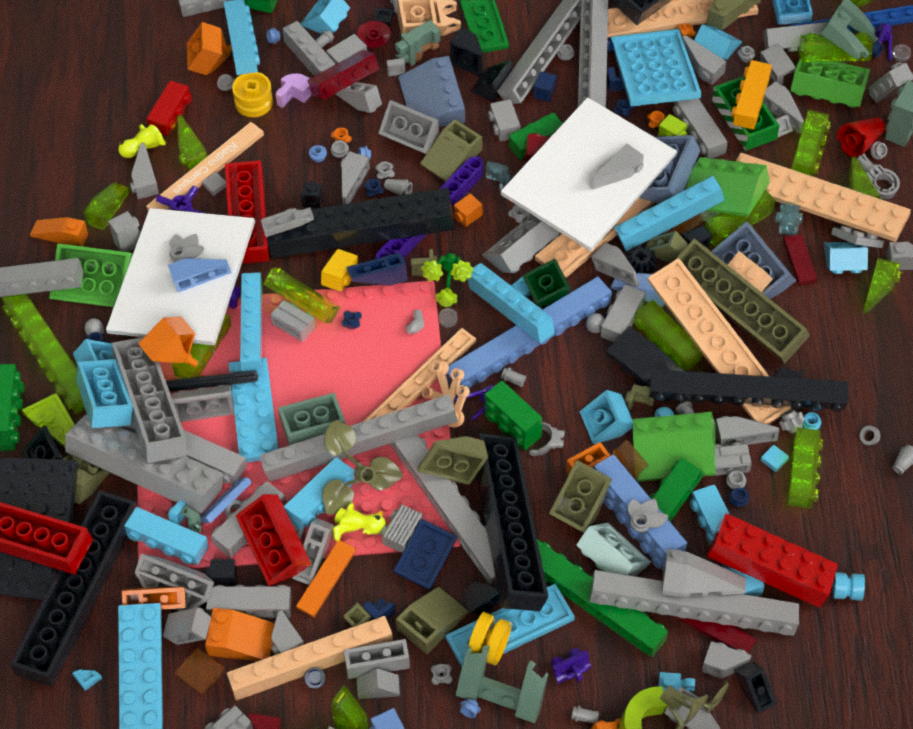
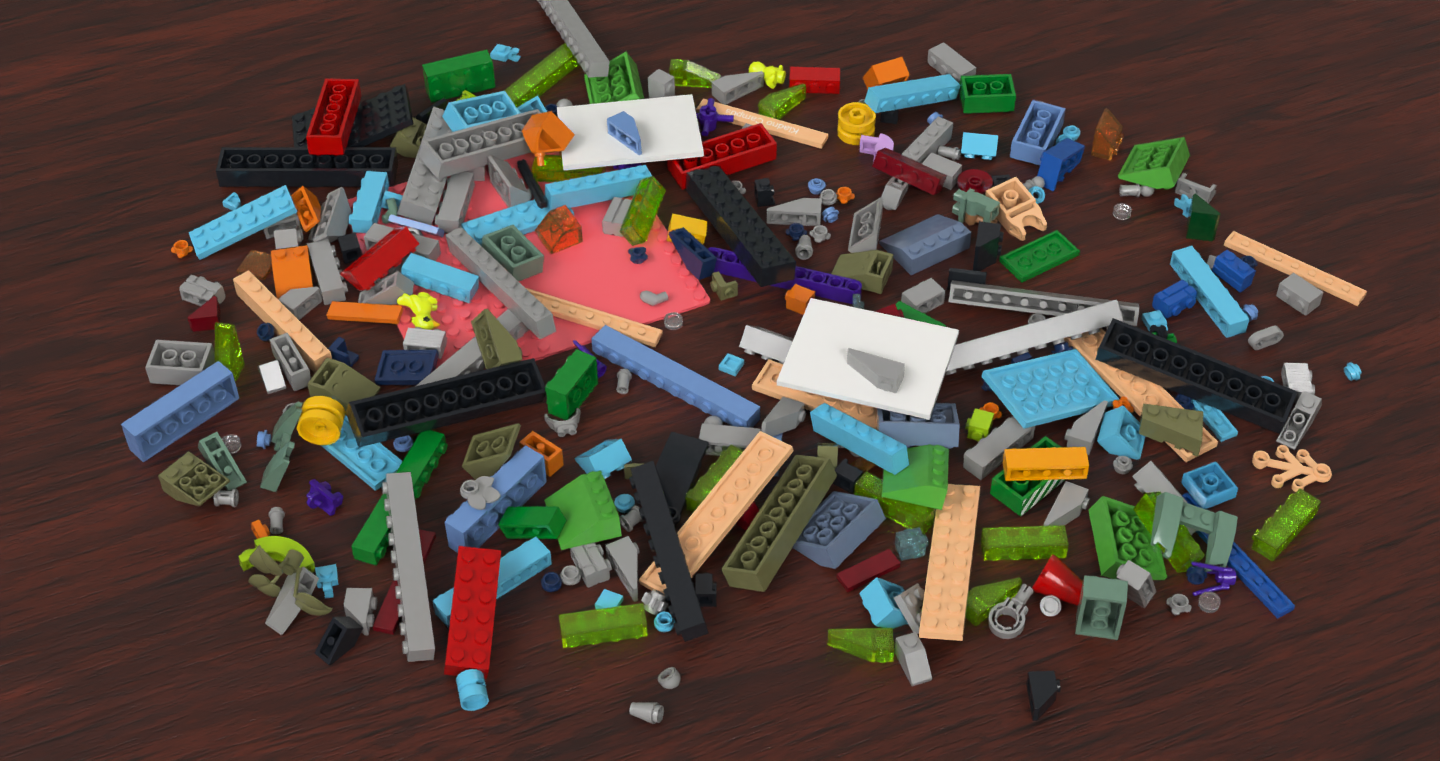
camera: 70 degrees right, 10 degrees down
(61, 230) = (652, 59): orange slope -> none
(184, 247) = (653, 120): light grey plate -> none
(286, 221) = (709, 171): light grey hinge -> none
(288, 376) = (559, 230): none -> clear orange slope
(357, 615) = (329, 337): olive slope -> none
(379, 475) = (439, 285): olive plant -> none
(395, 67) = (944, 206): light grey tile -> none
(440, 369) = (565, 337): light nougat plant -> none
(454, 267) = (712, 301): lime plant -> none
(511, 303) = (695, 348): medium azure brick -> none
(545, 86) = (981, 316): dark blue panel -> none
(547, 283) = (735, 372): dark green slope -> none
(612, 551) = (446, 495): light aqua slope -> none
(630, 458) = (555, 483): clear orange piece -> none
(641, 260) = (801, 438): black gear -> none
(691, 574) = (428, 547): light grey wedge -> none
(750, 271) = (815, 518): light nougat brick -> none
(780, 63) = (1118, 485): light grey panel -> none
(785, 126) = (1036, 513): light grey tile -> none

